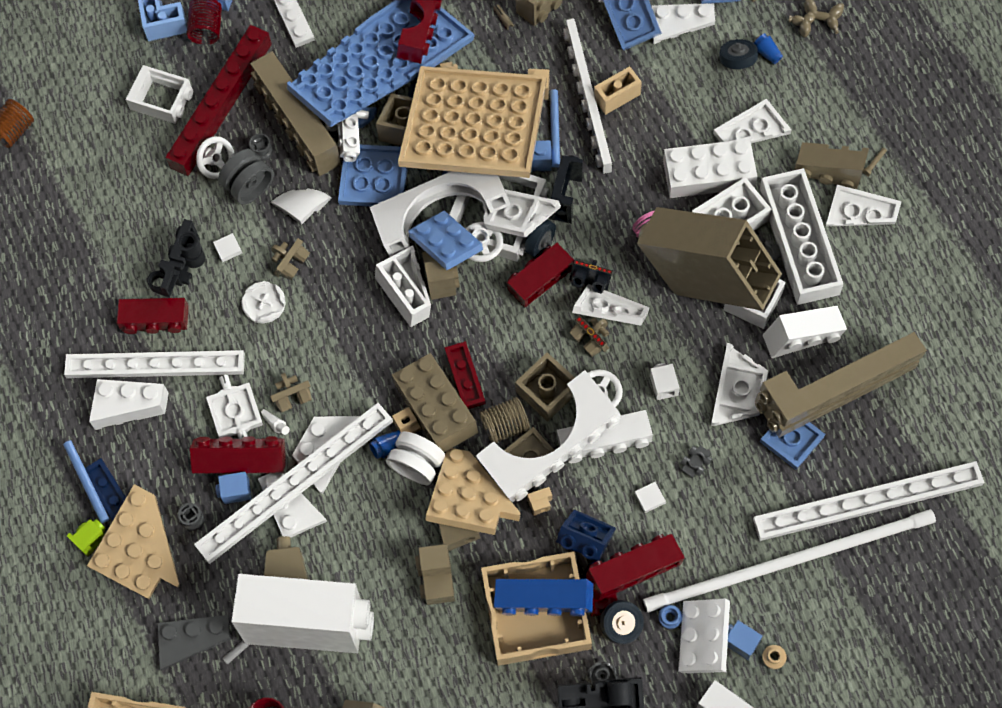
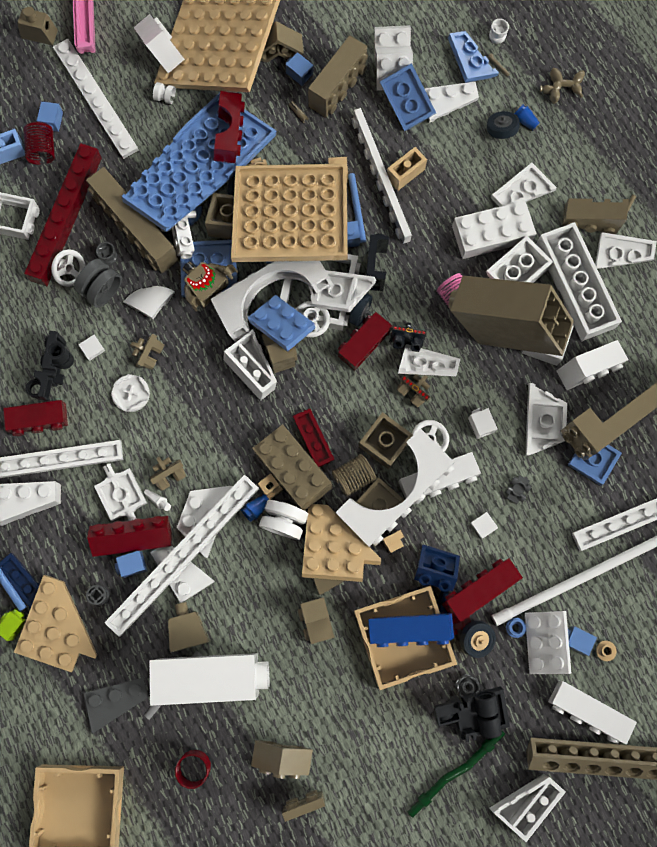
camera: 15 degrees left, 10 degrees up
(367, 188) = (205, 282): none -> dark tan torso

